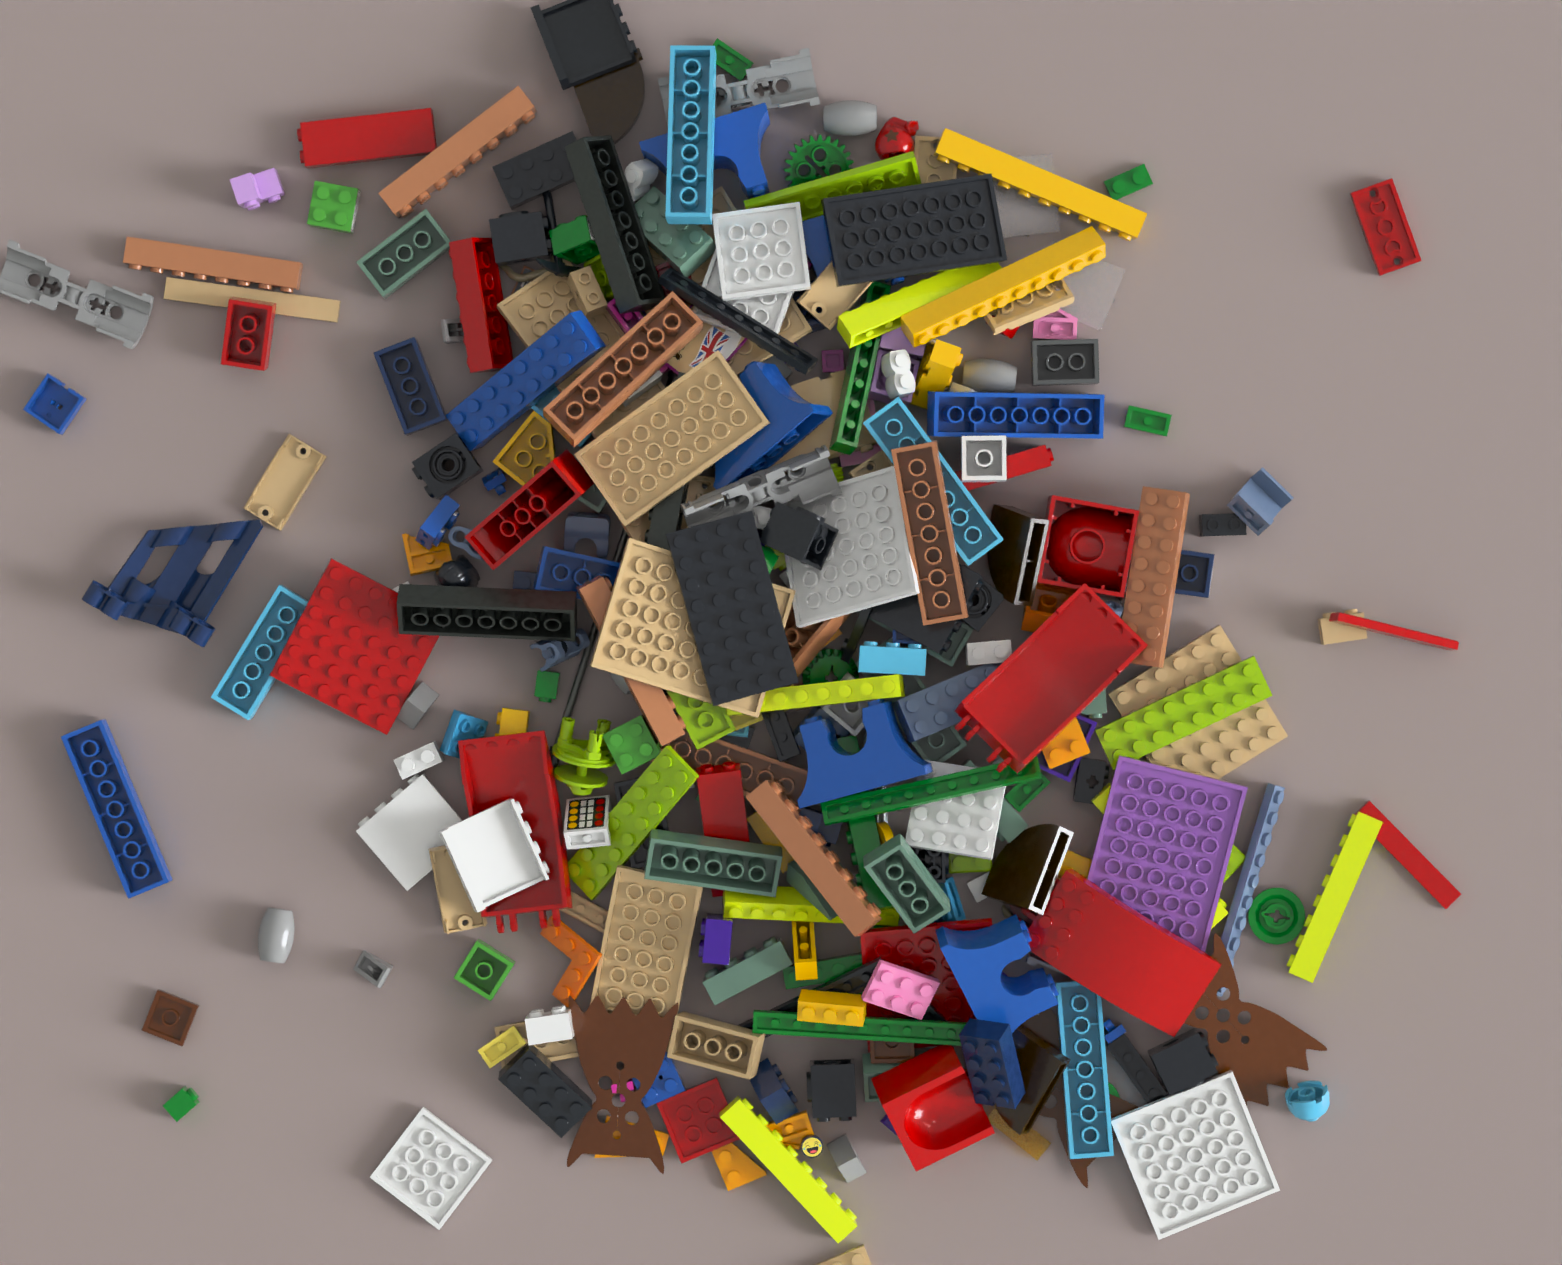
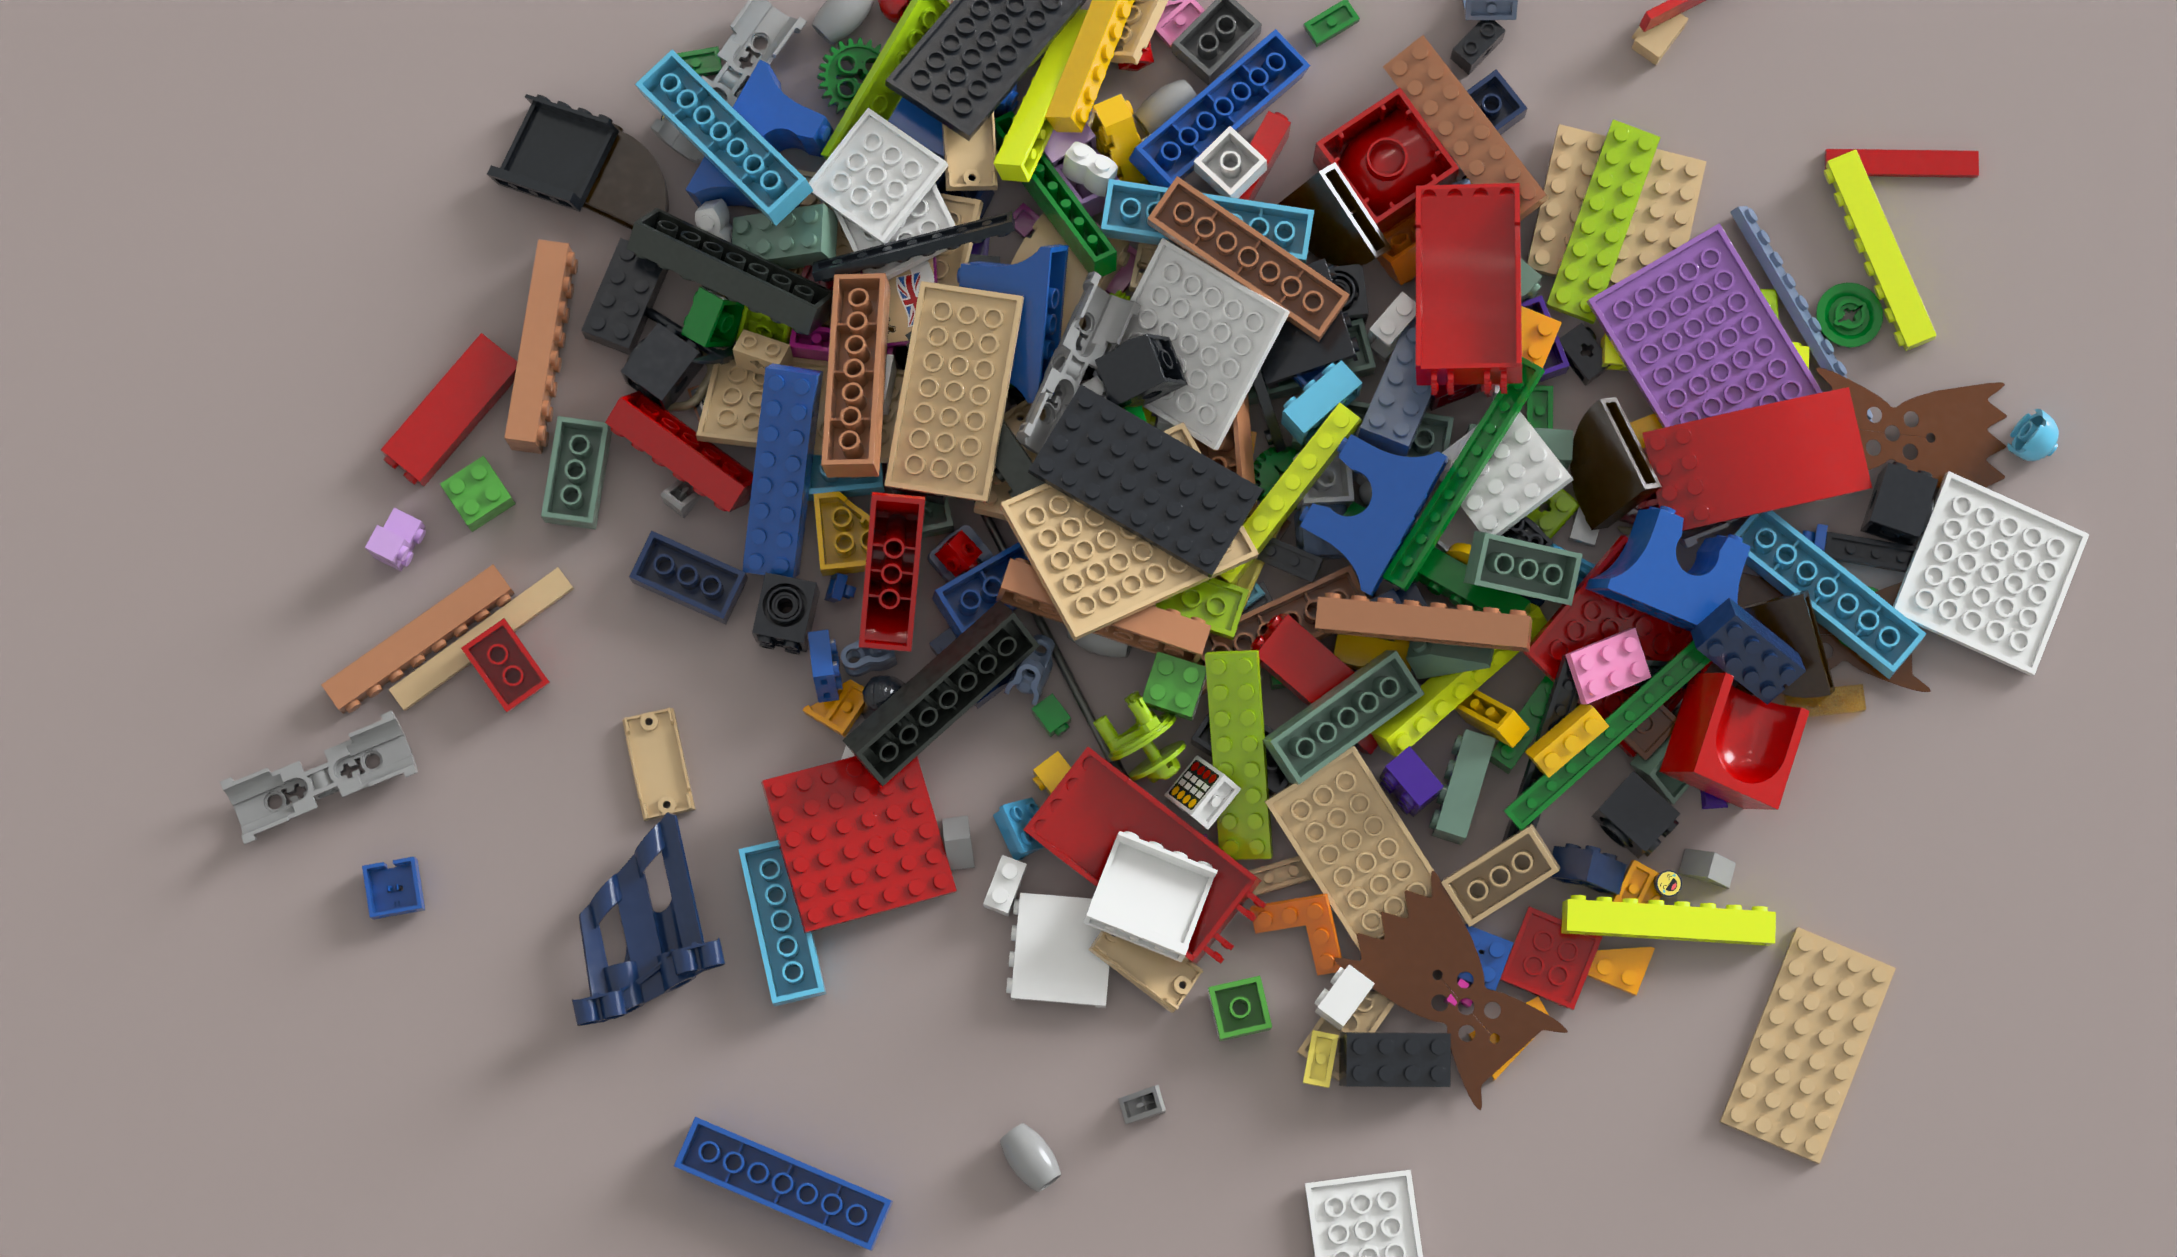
camera: 45 degrees left, 10 degrees down
(583, 536) = (959, 553): none -> red brick

